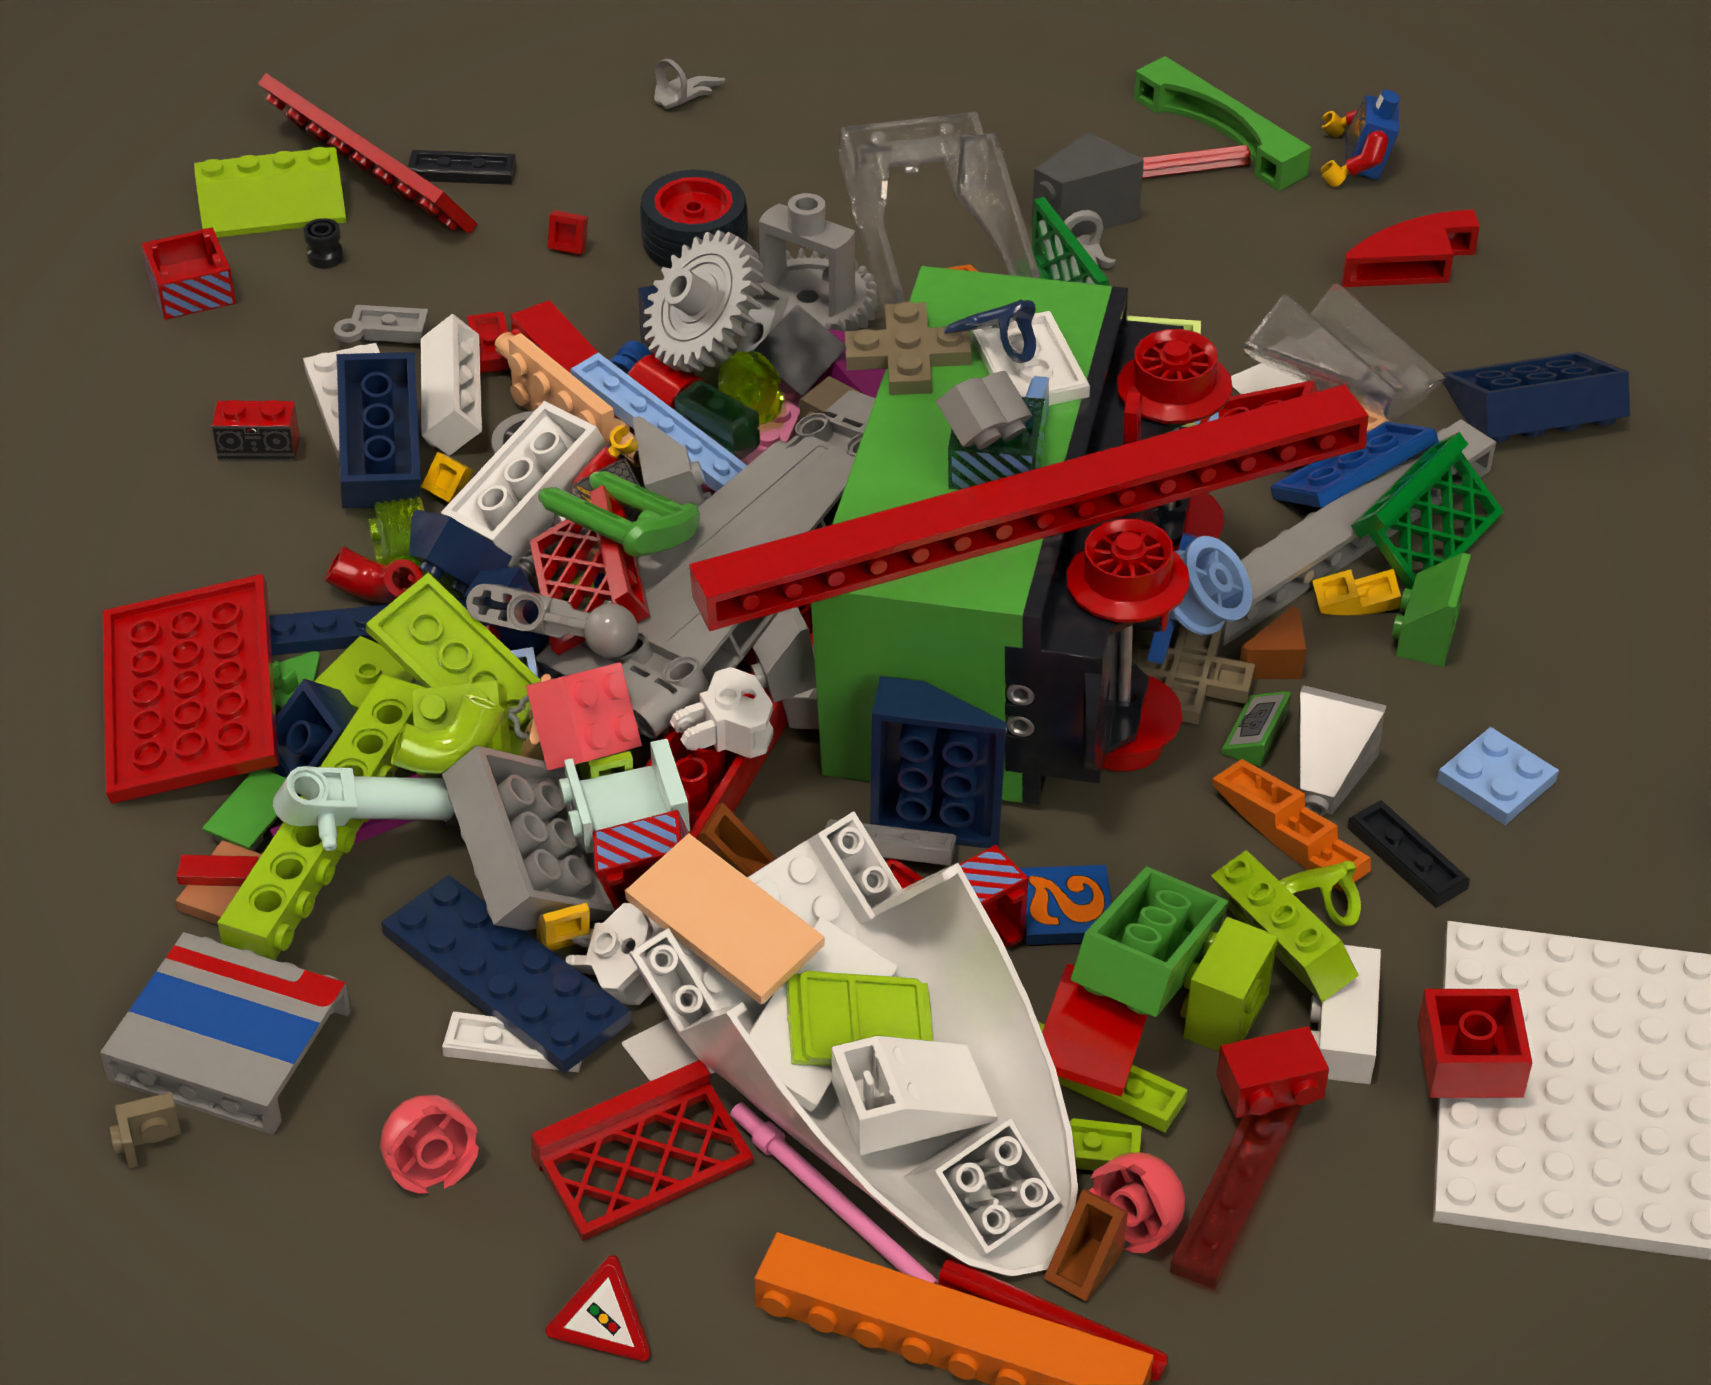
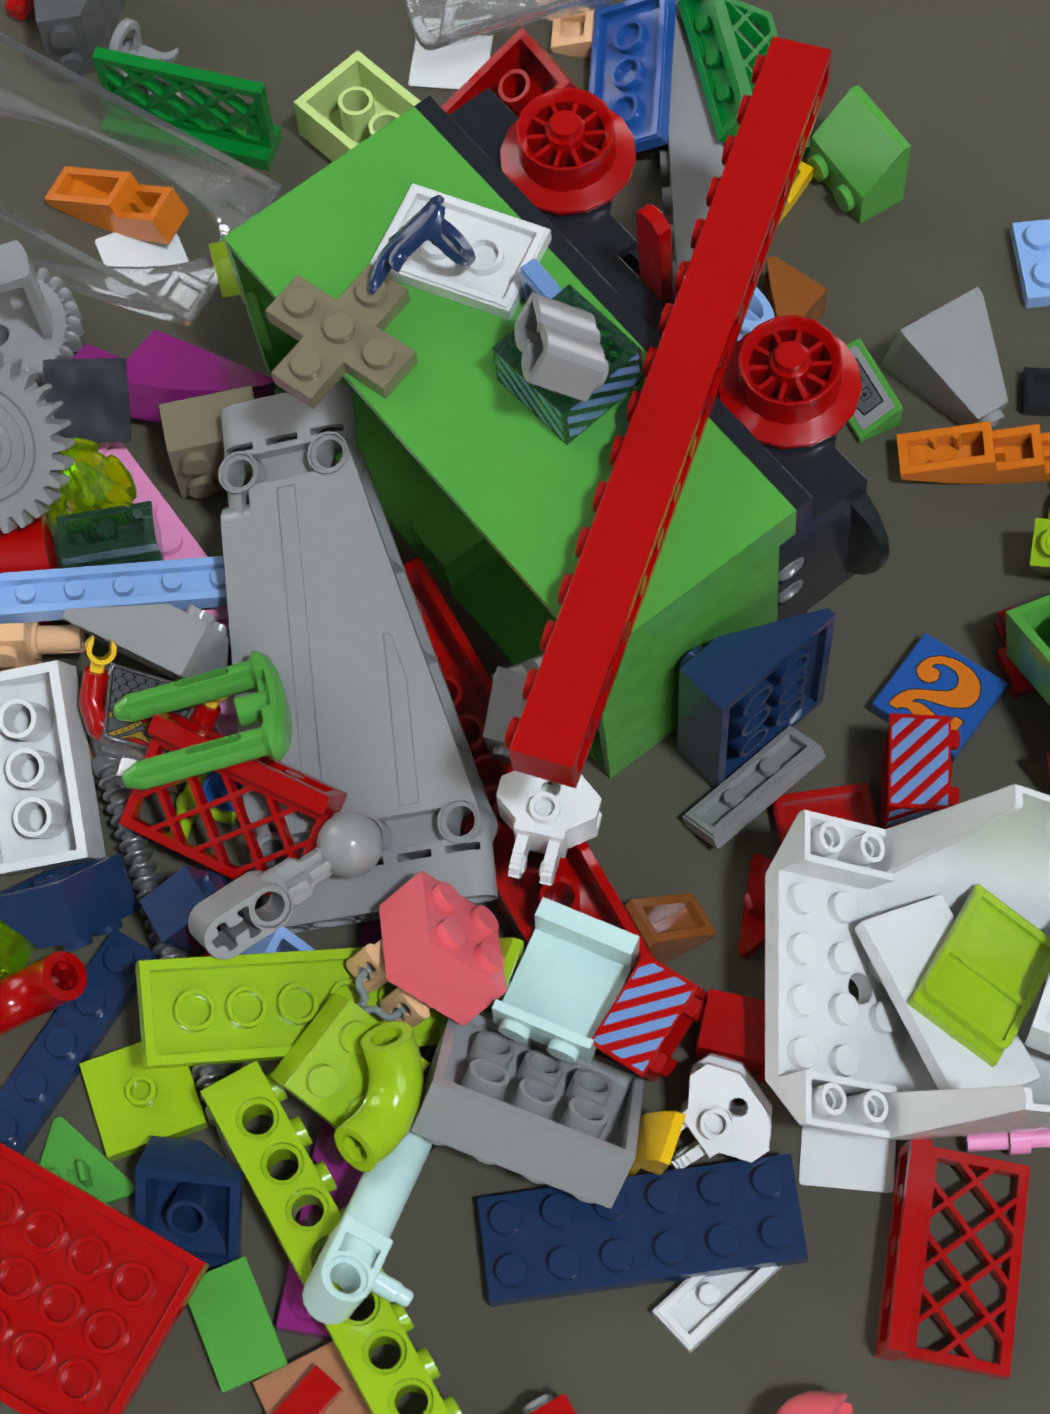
camera: 45 degrees left, 20 degrees up
(725, 918) = (817, 1009): light nougat tile -> none

